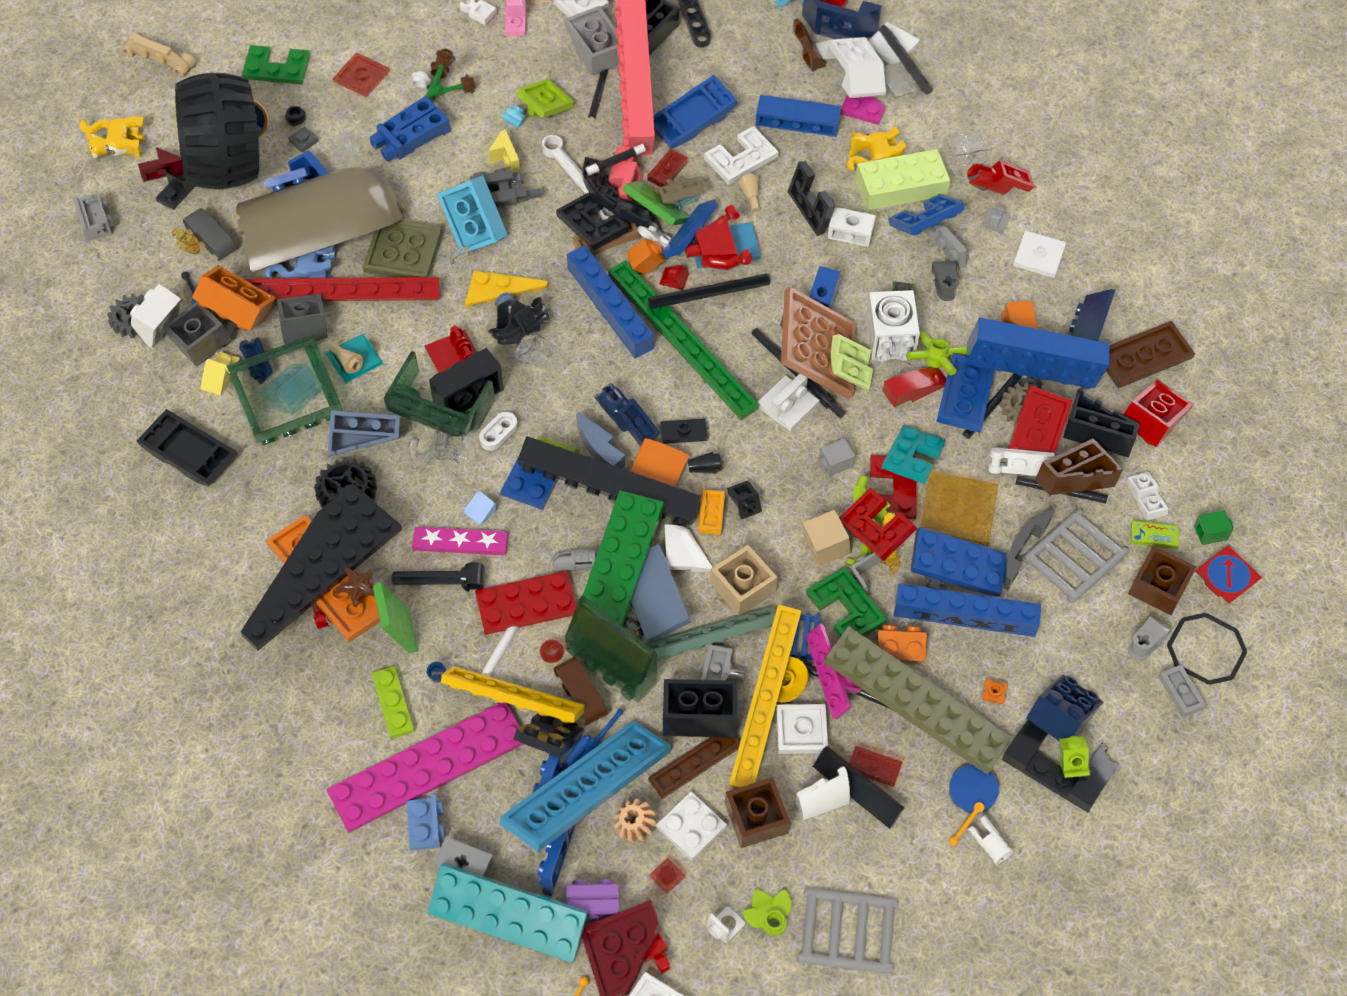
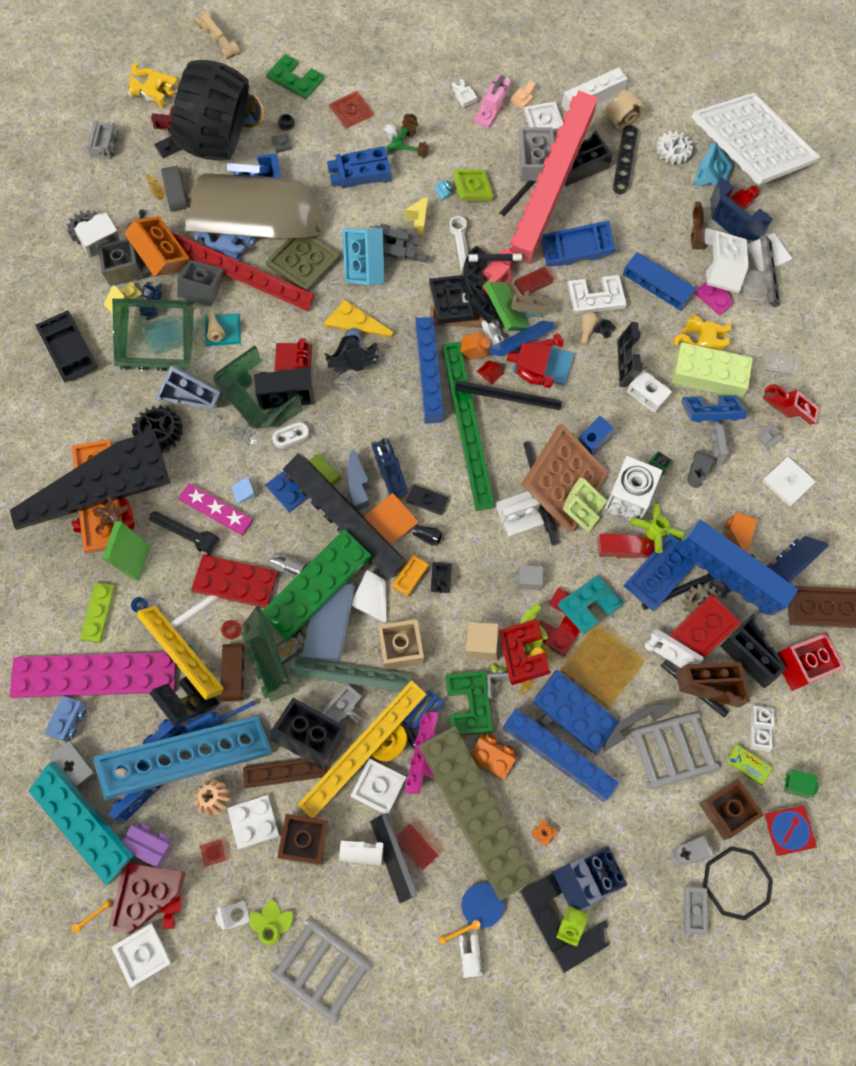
camera: 25 degrees right, 10 degrees up
(765, 181) = (604, 323): none -> black plate

